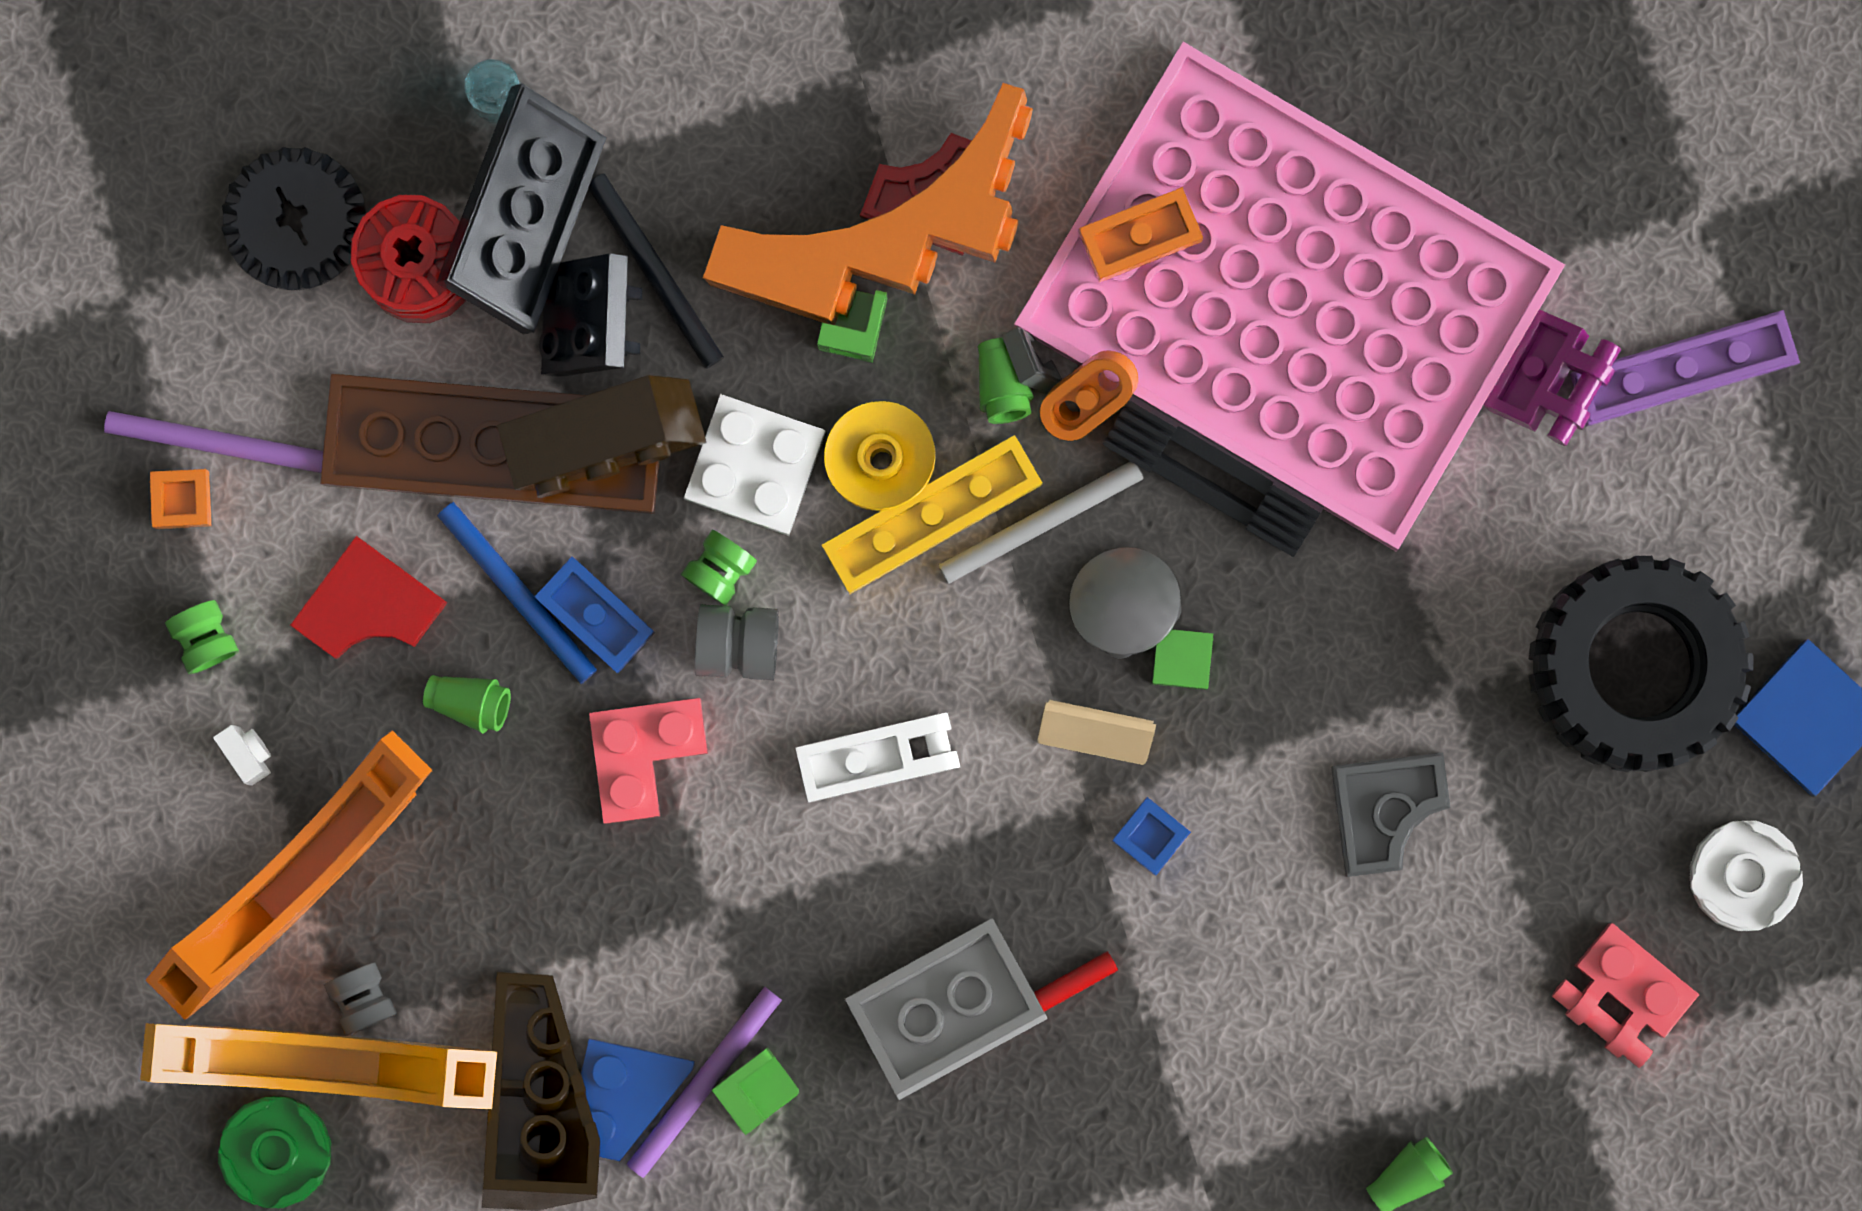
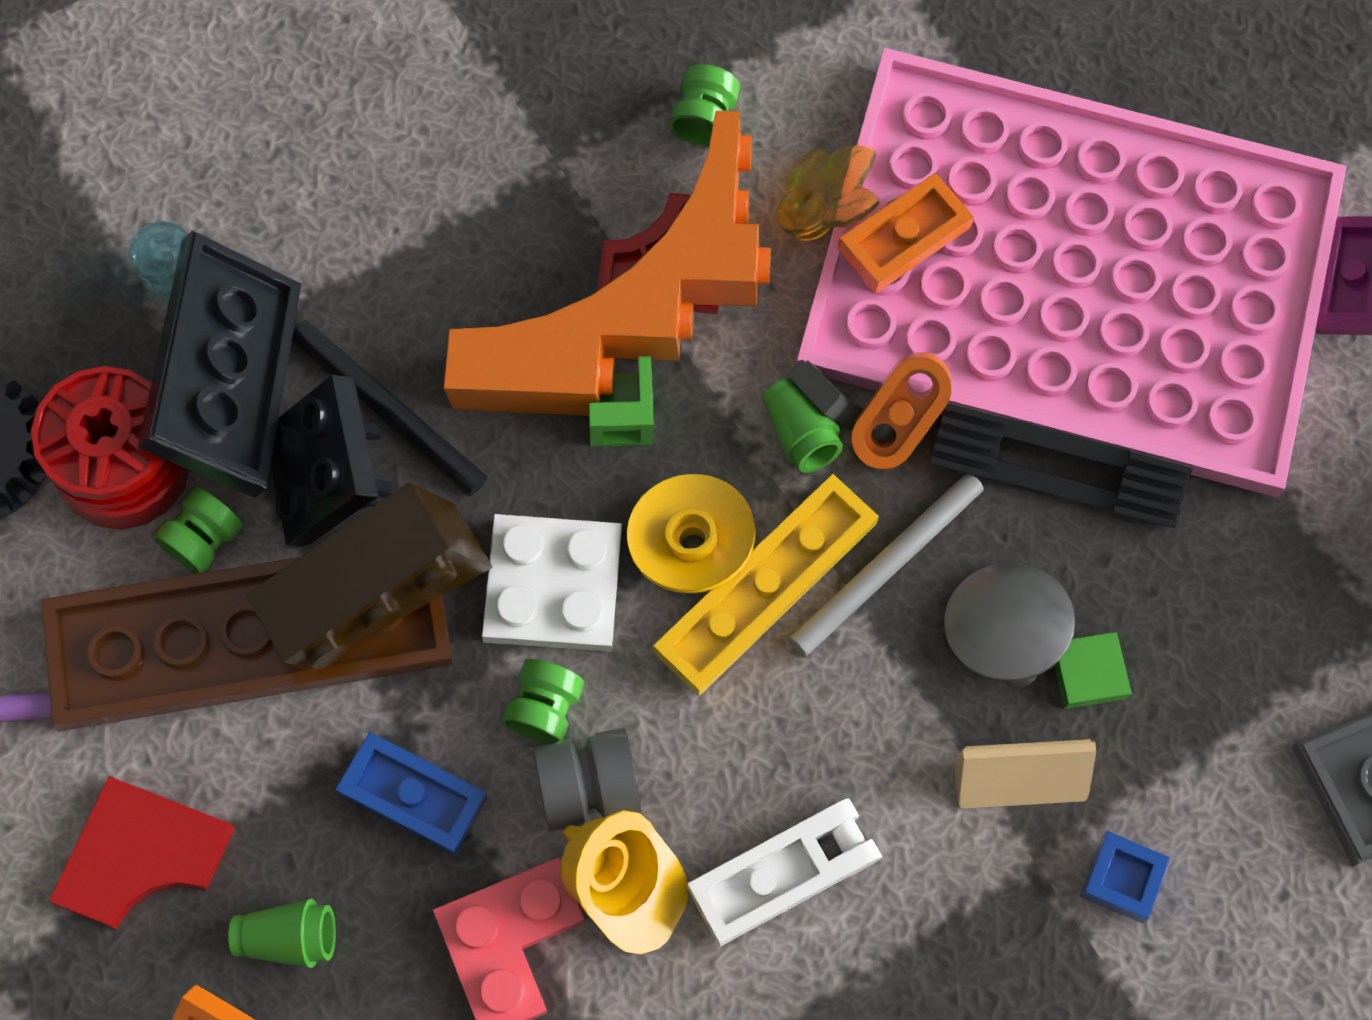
camera: 20 degrees left, 15 degrees down
(480, 338) = (205, 522): none -> bright green wheel
(517, 592) = (315, 795): blue bar -> none
(746, 732) = (625, 880): none -> yellow piece
(1003, 55) = (702, 92): none -> bright green wheel
(1090, 167) = (827, 192): none -> clear yellow plate

